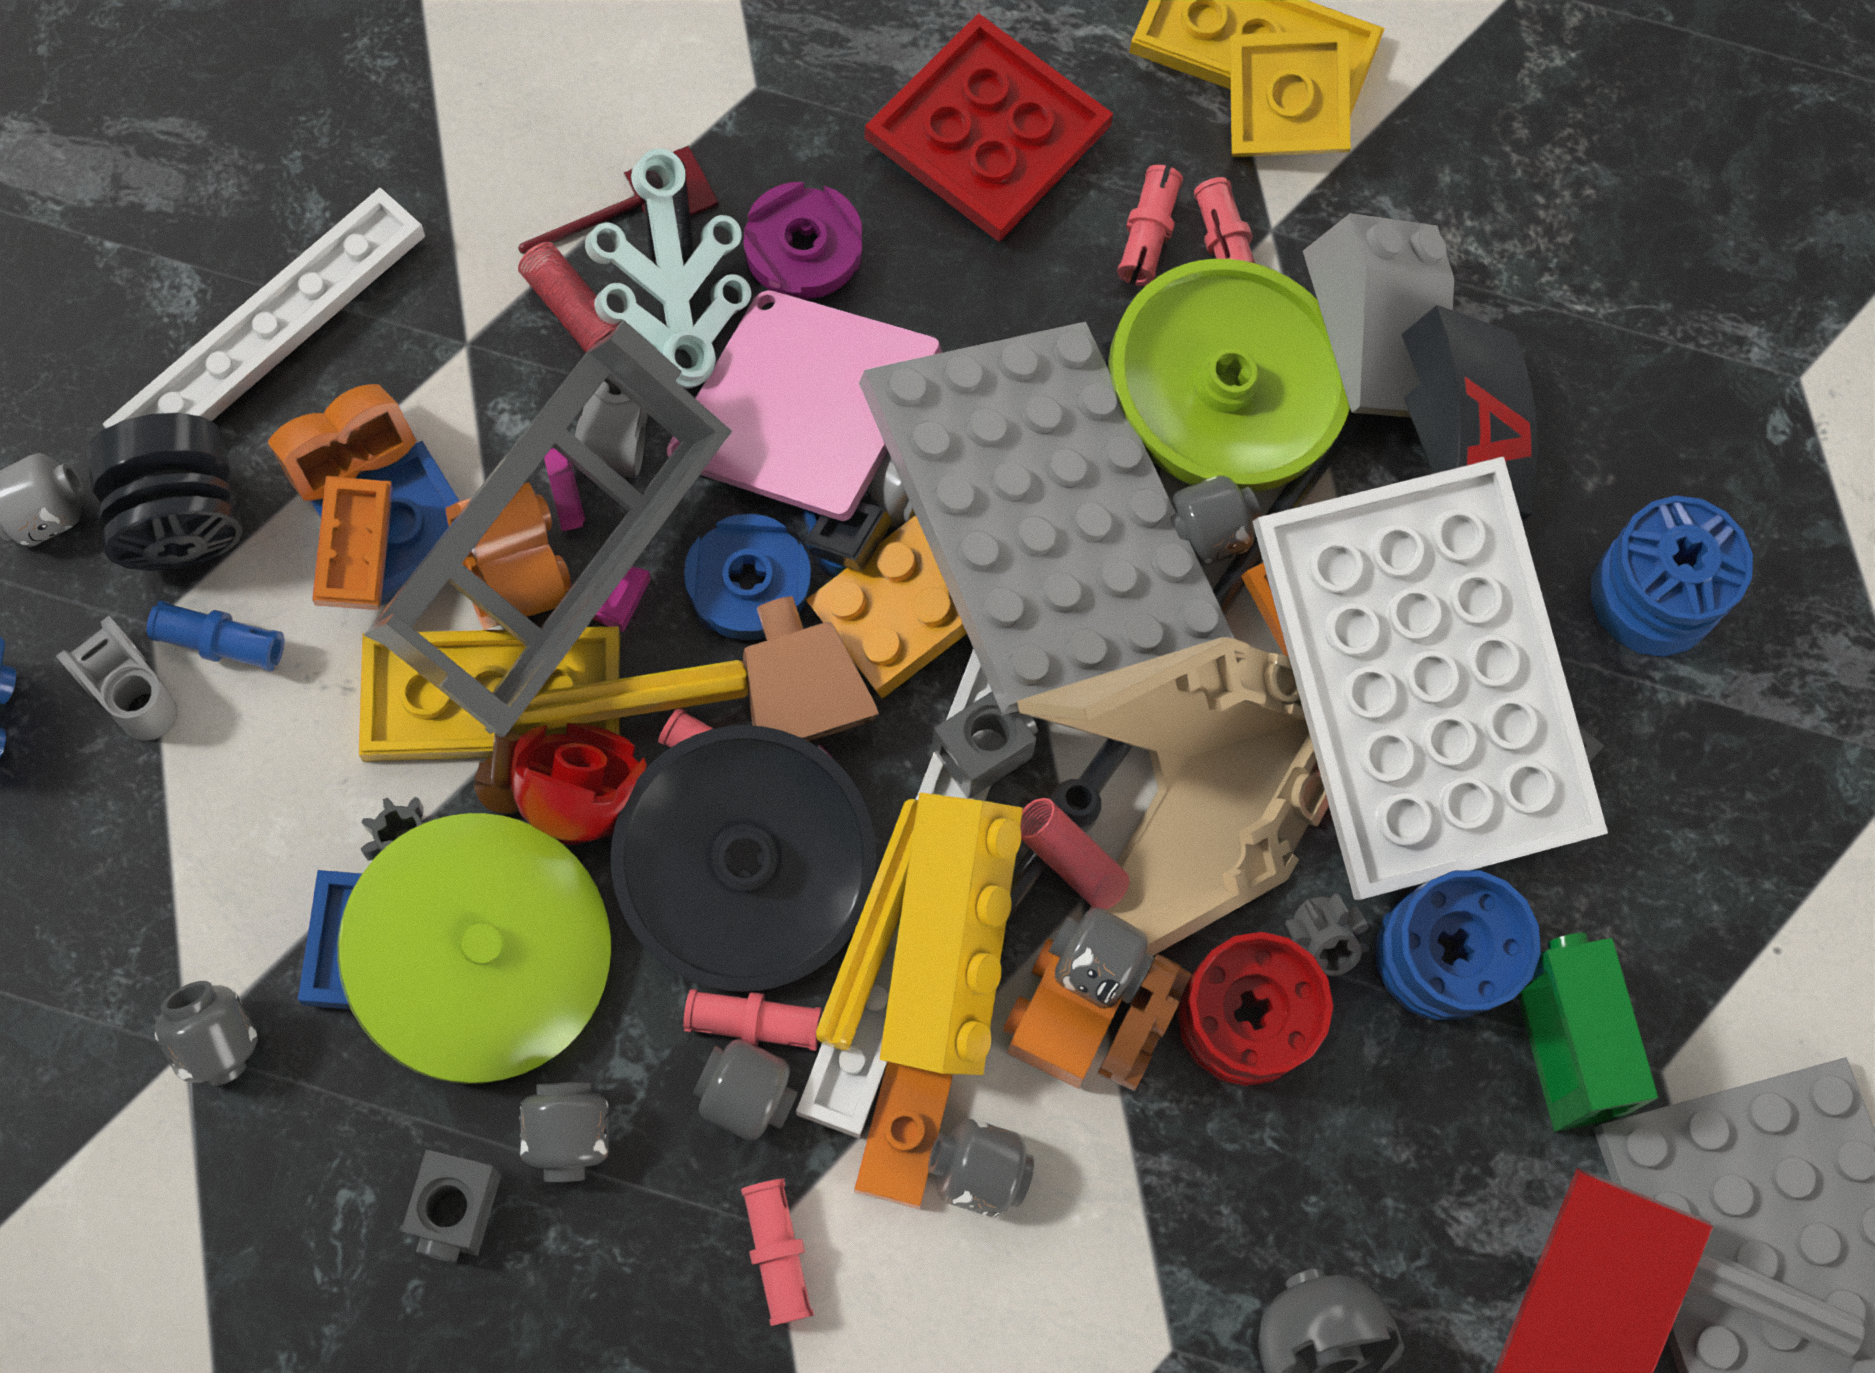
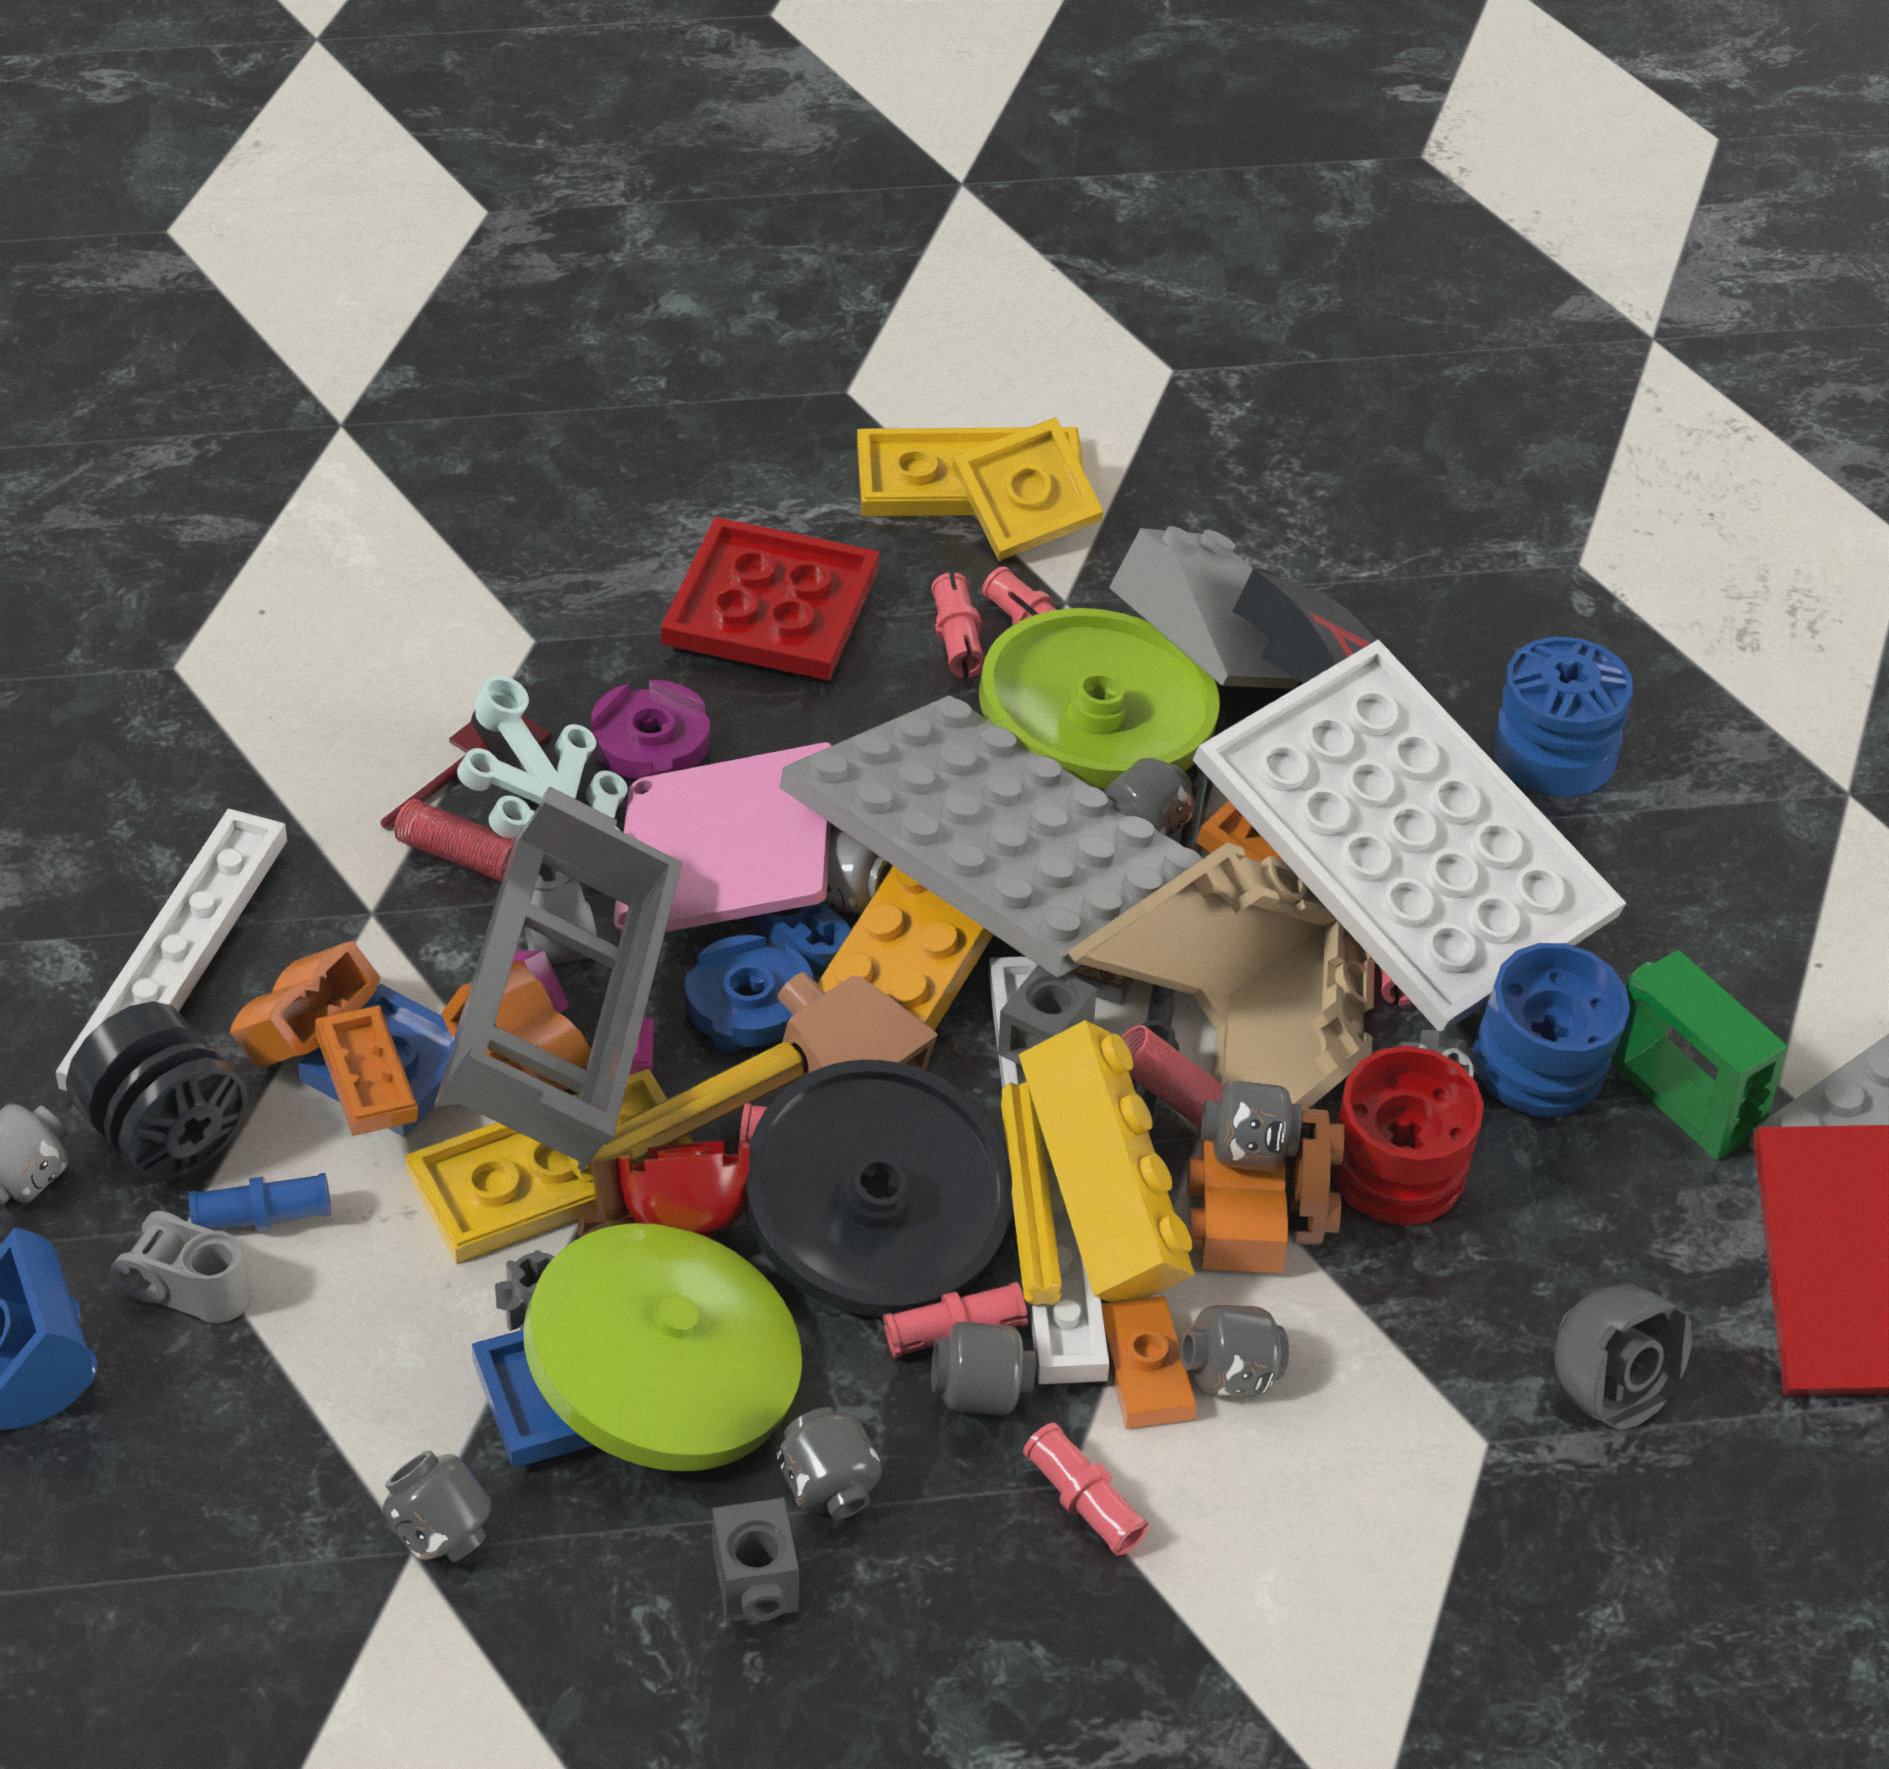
camera: 20 degrees left, 25 degrees down
(850, 541) = (831, 921): black tile -> none

